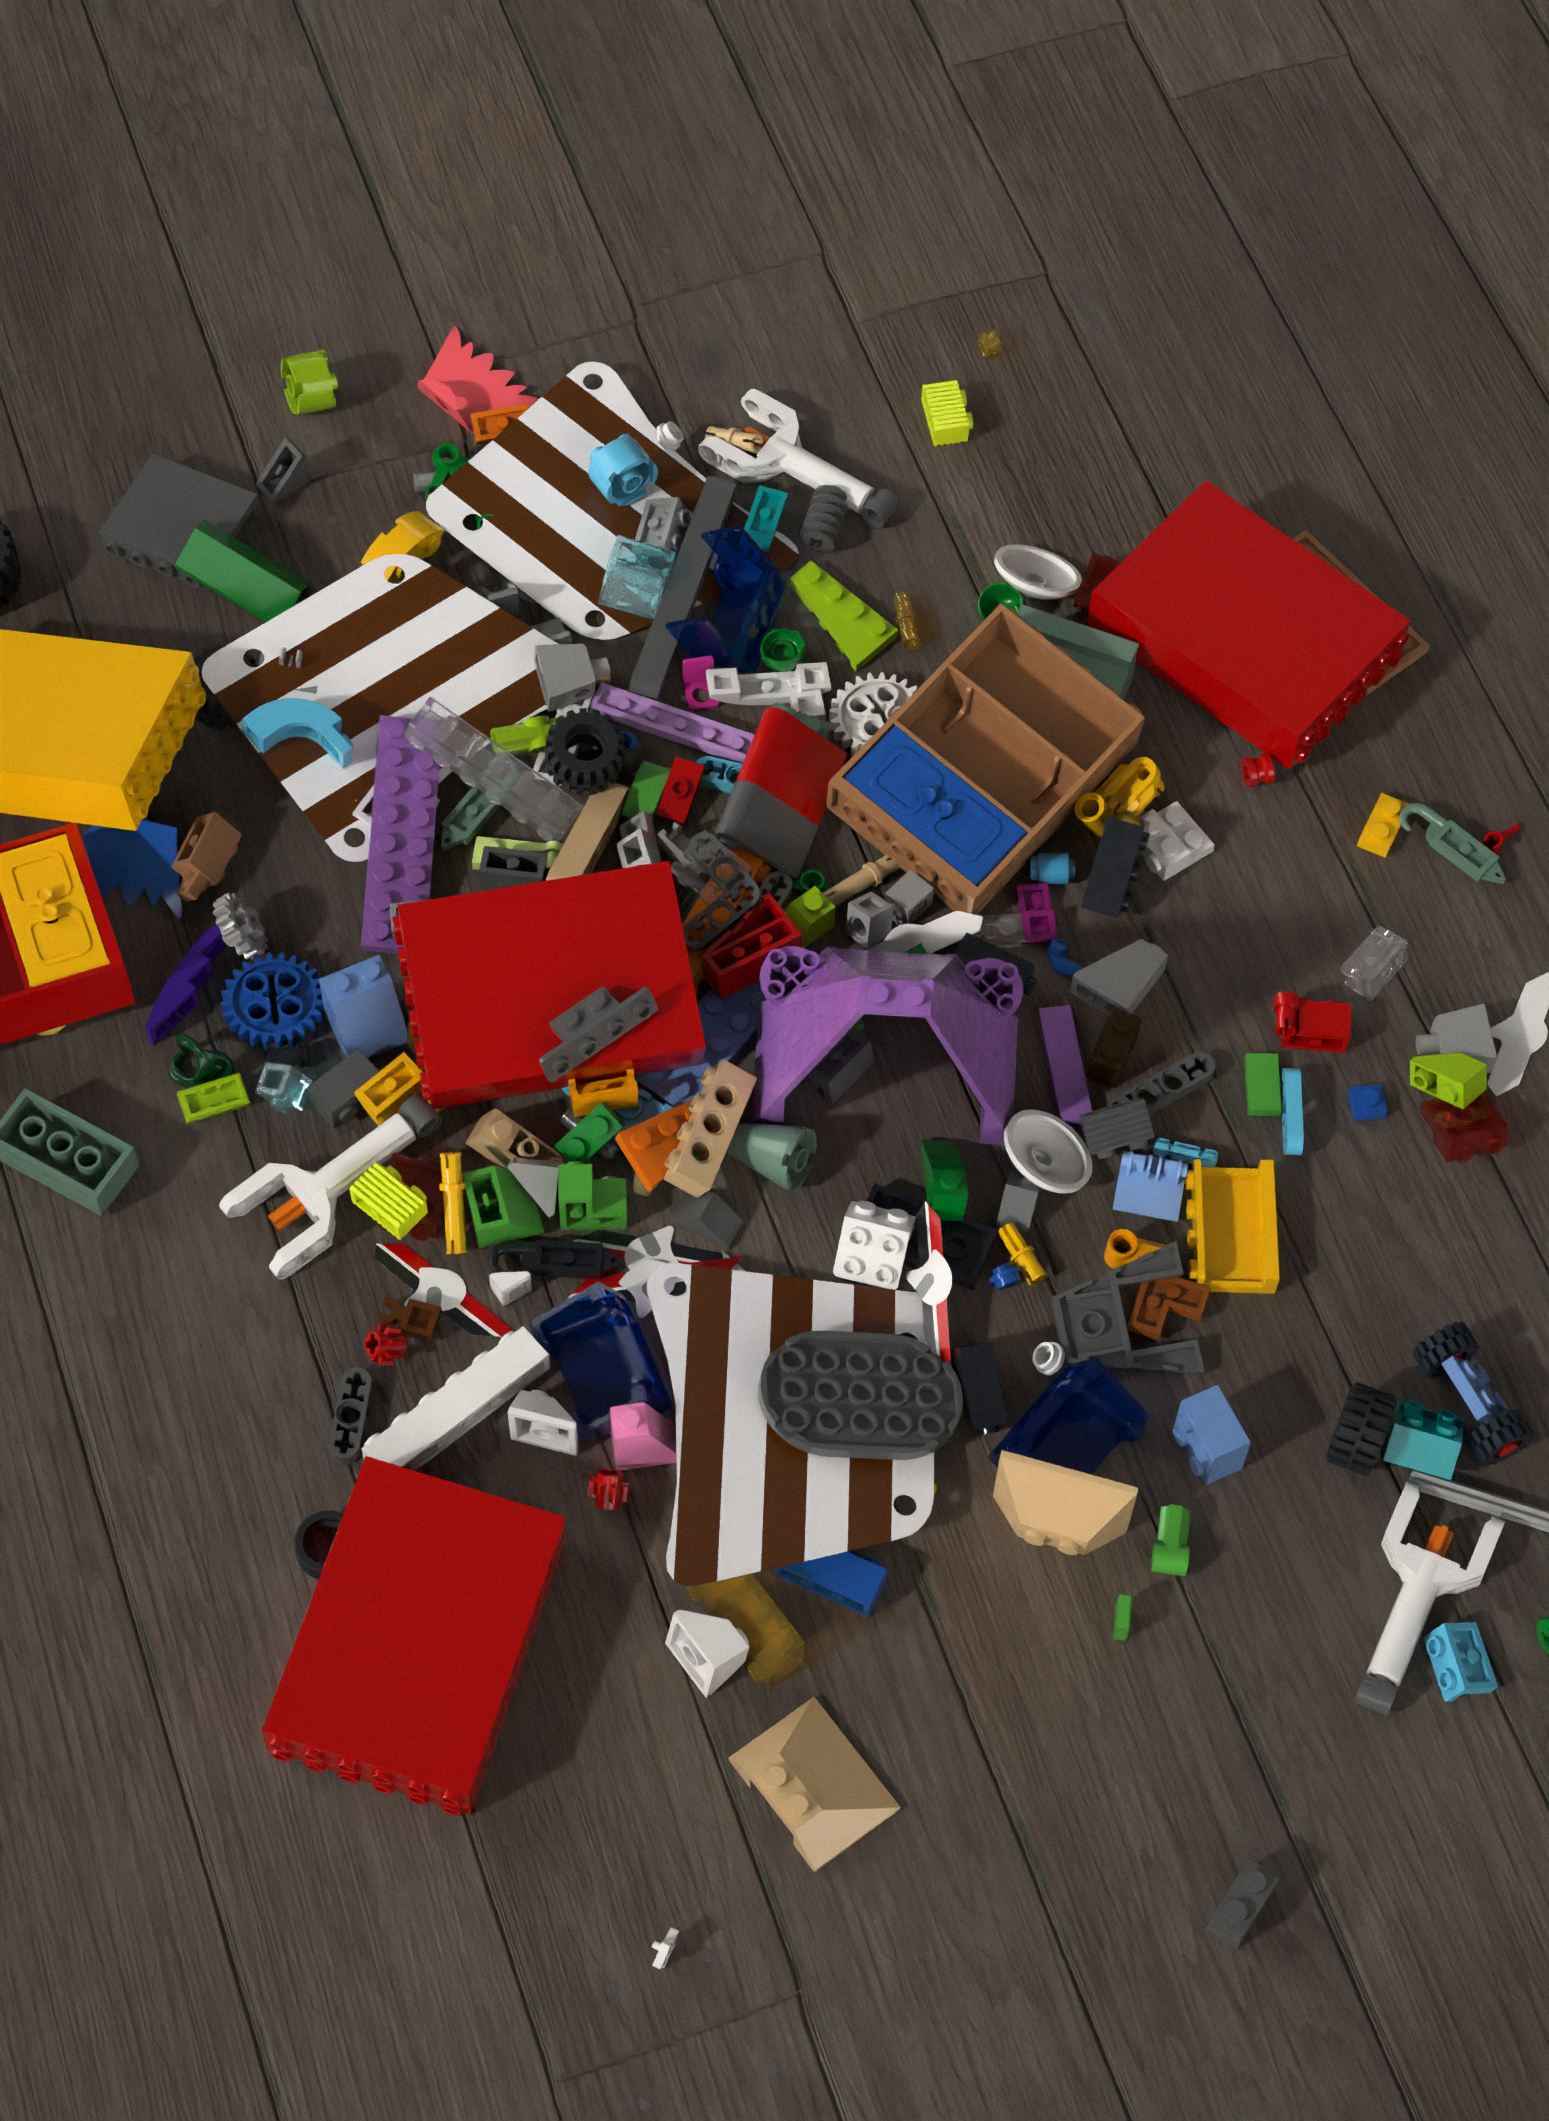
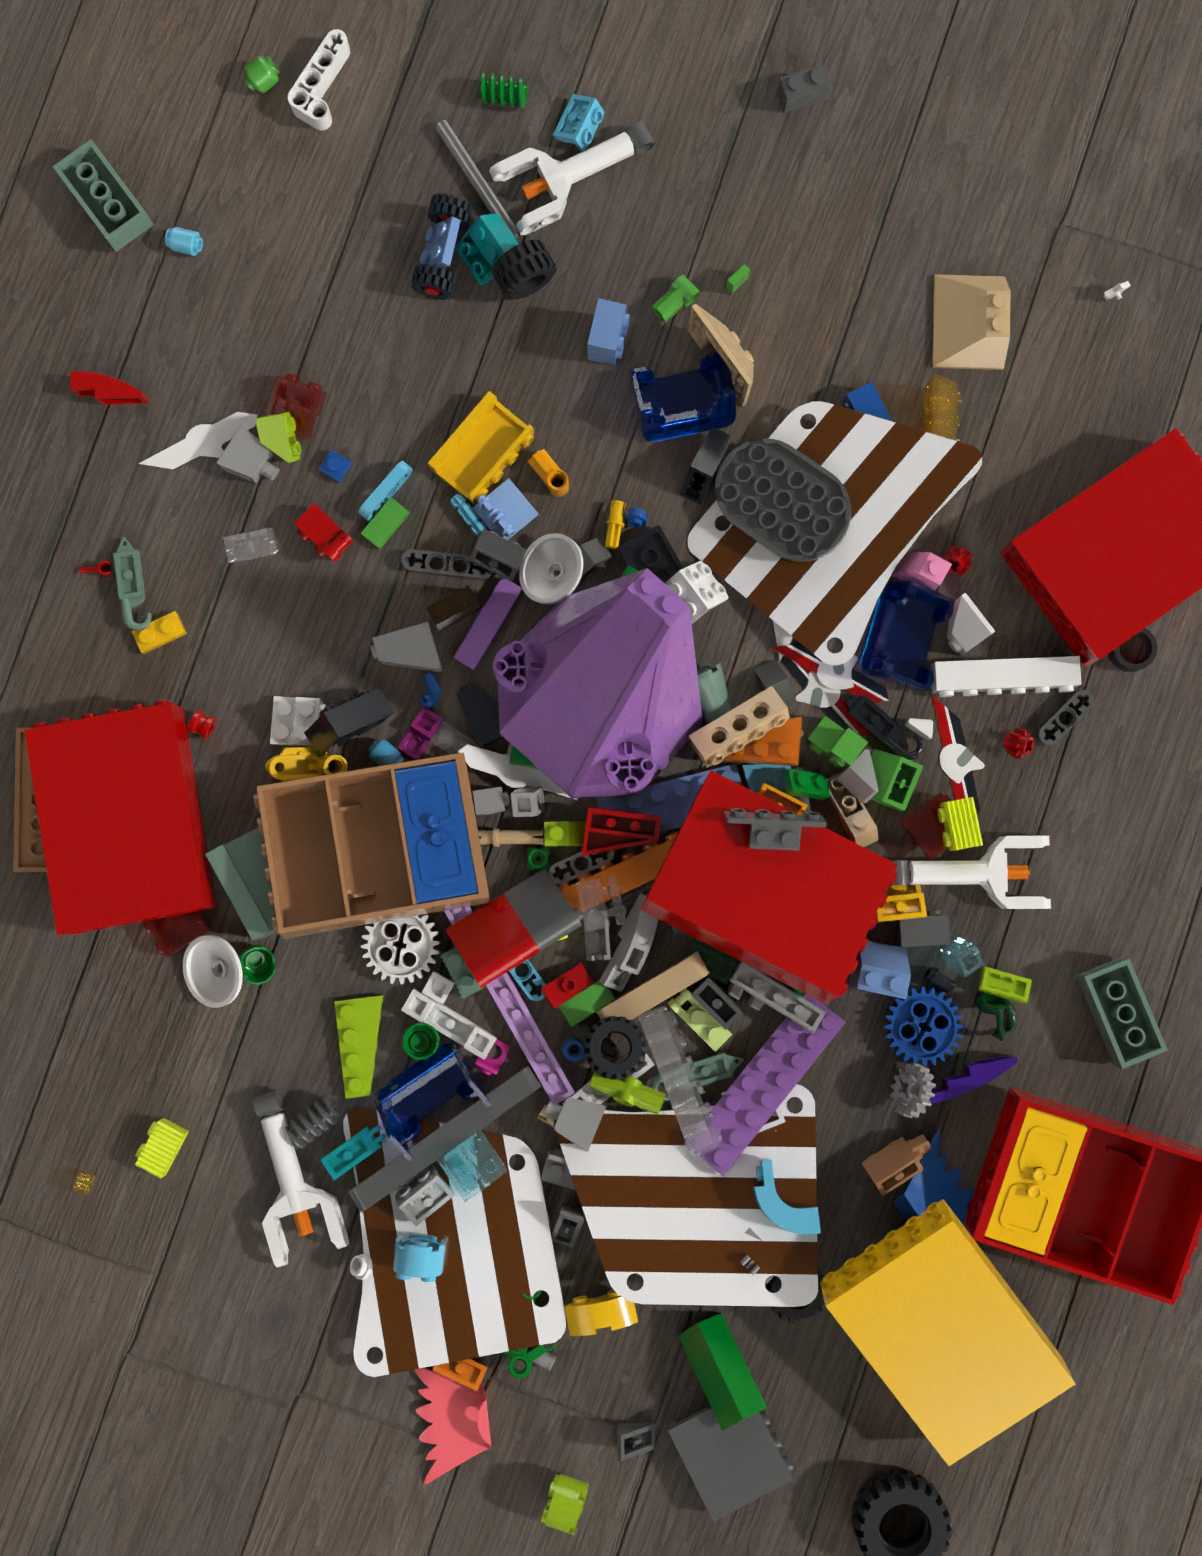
camera: 140 degrees left, 25 degrees up
(415, 1319) = (987, 748): reddish brown plate -> none
(453, 1202) = (917, 805): yellow pin -> none
(706, 1648) = (976, 421): white slope -> none
(729, 887) = (603, 877): dark grey beam -> none
(737, 438) = (319, 1232): tan pin -> none
(906, 621) = (323, 1004): clear yellow pin -> none
(932, 1281) = (684, 537): sticker -> none
(1048, 1357) = (657, 452): white plate -> none
(1094, 1325) = (611, 450): dark grey wing -> none
(1166, 1296) = (560, 441): dark orange plate -> none

